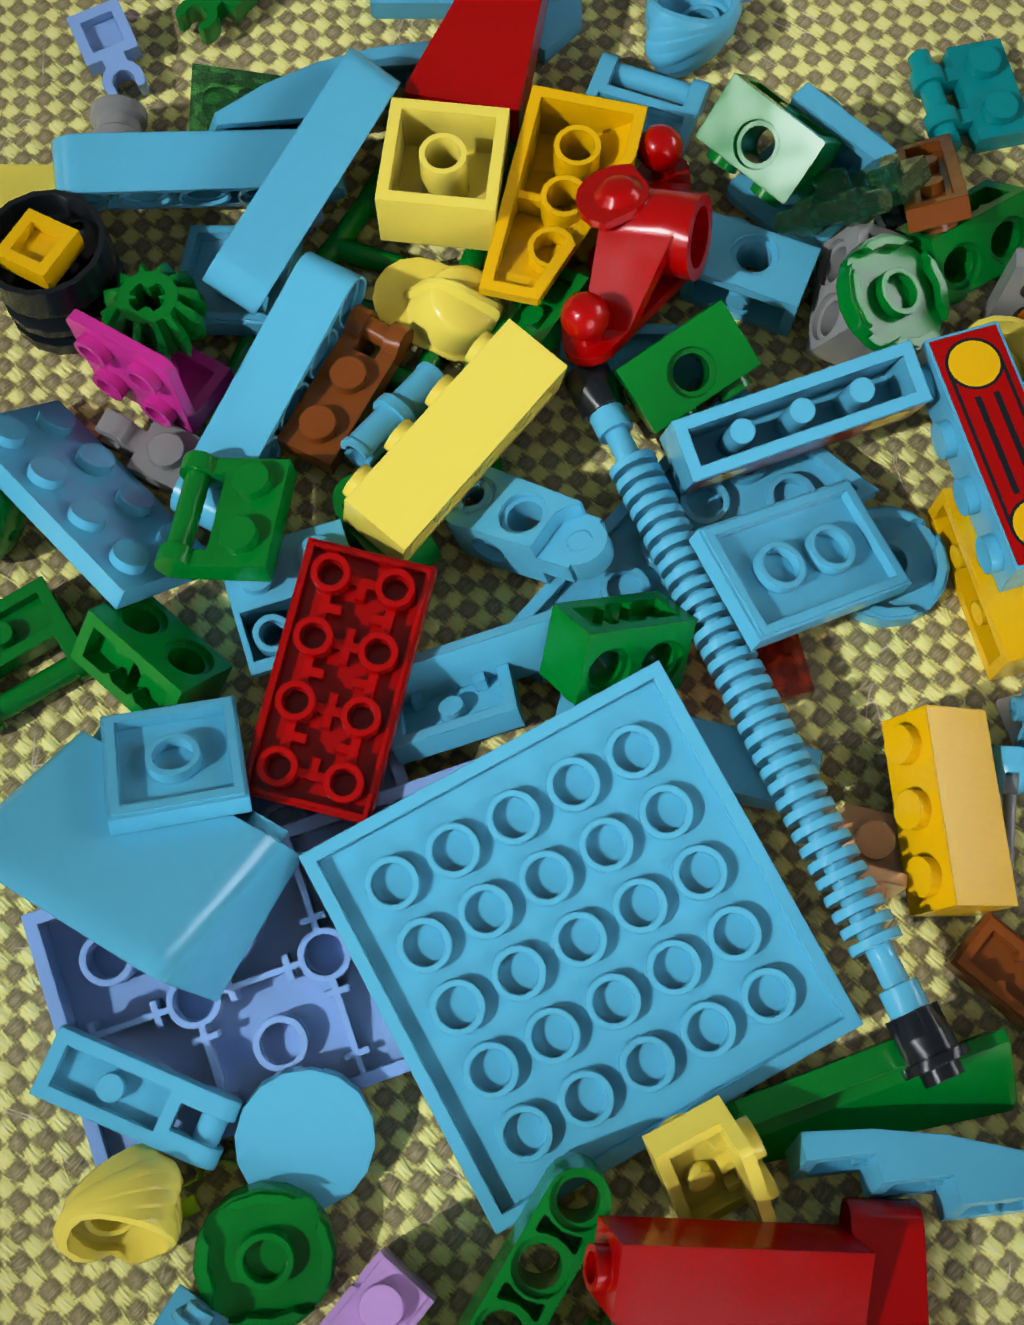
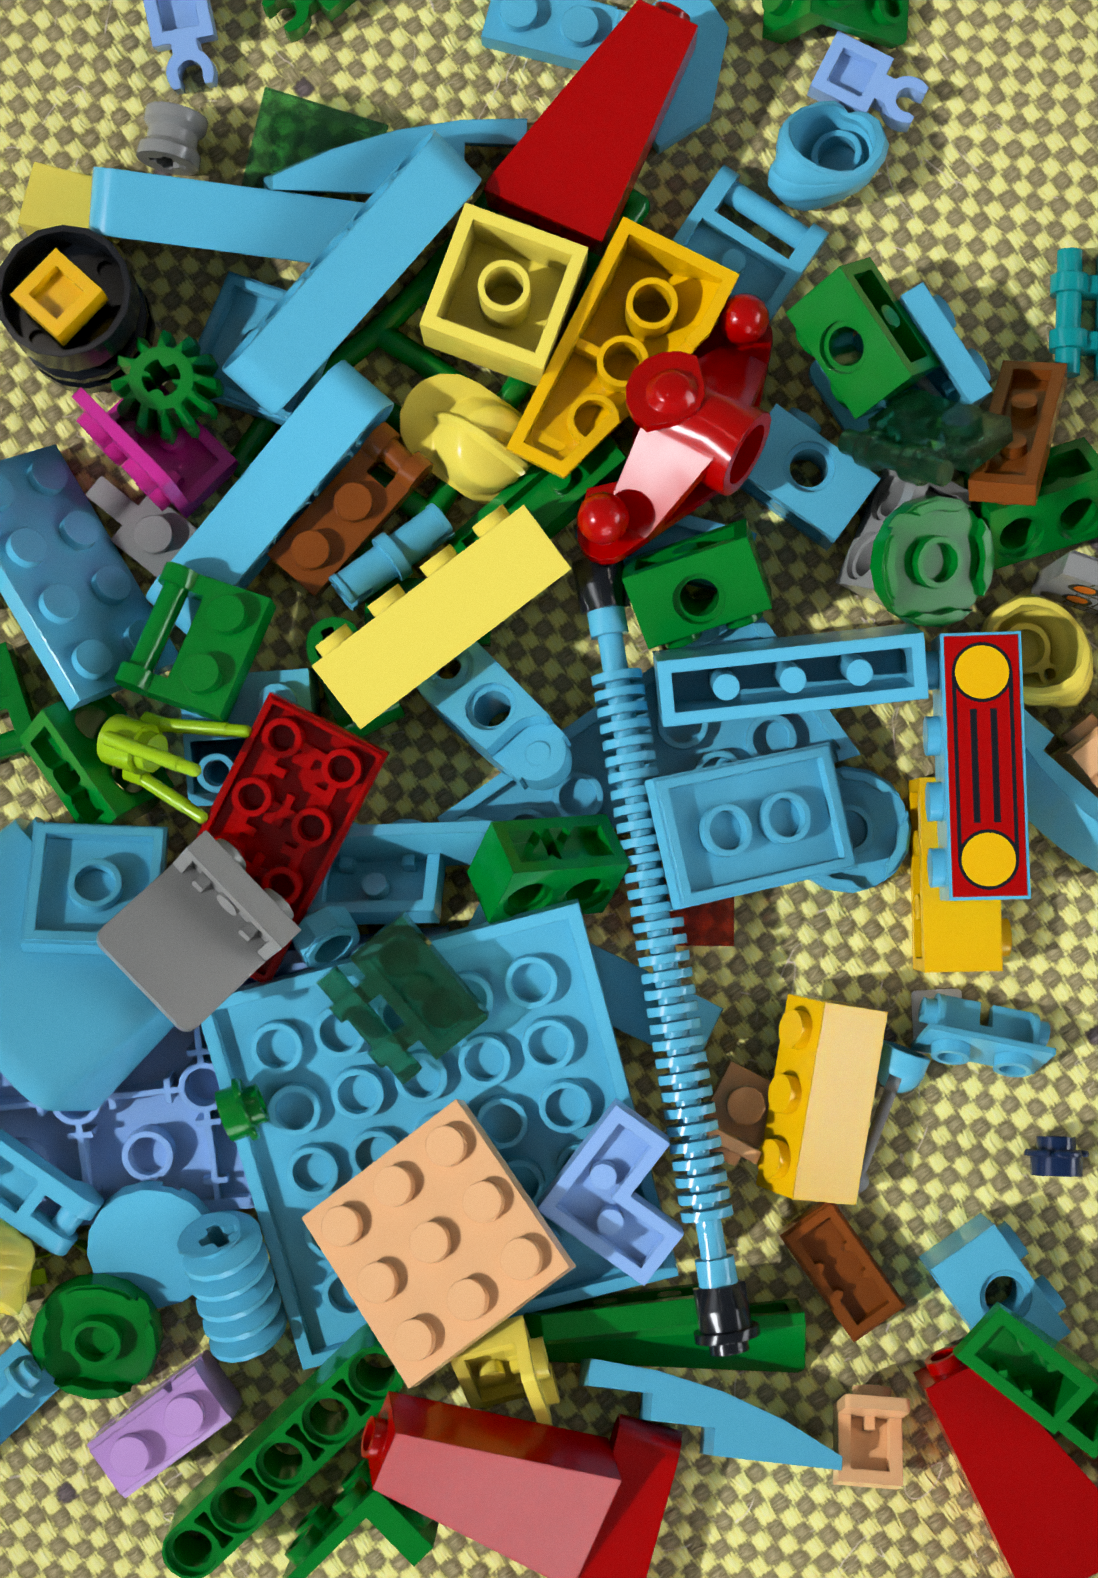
camera: 15 degrees right, 15 degrees up
(194, 620) = (141, 749): none -> lime plant
(290, 762) = (197, 932): none -> light grey bracket
(371, 950) = (241, 1110): none -> green plate
(402, 1152) = (233, 1284): none -> medium azure piece
(415, 759) = (326, 936): none -> medium azure tile
(524, 775) = (419, 988): none -> clear green plate
(610, 1039) = (437, 1243): none -> light nougat plate
(757, 945) = (598, 1199): none -> light blue plate

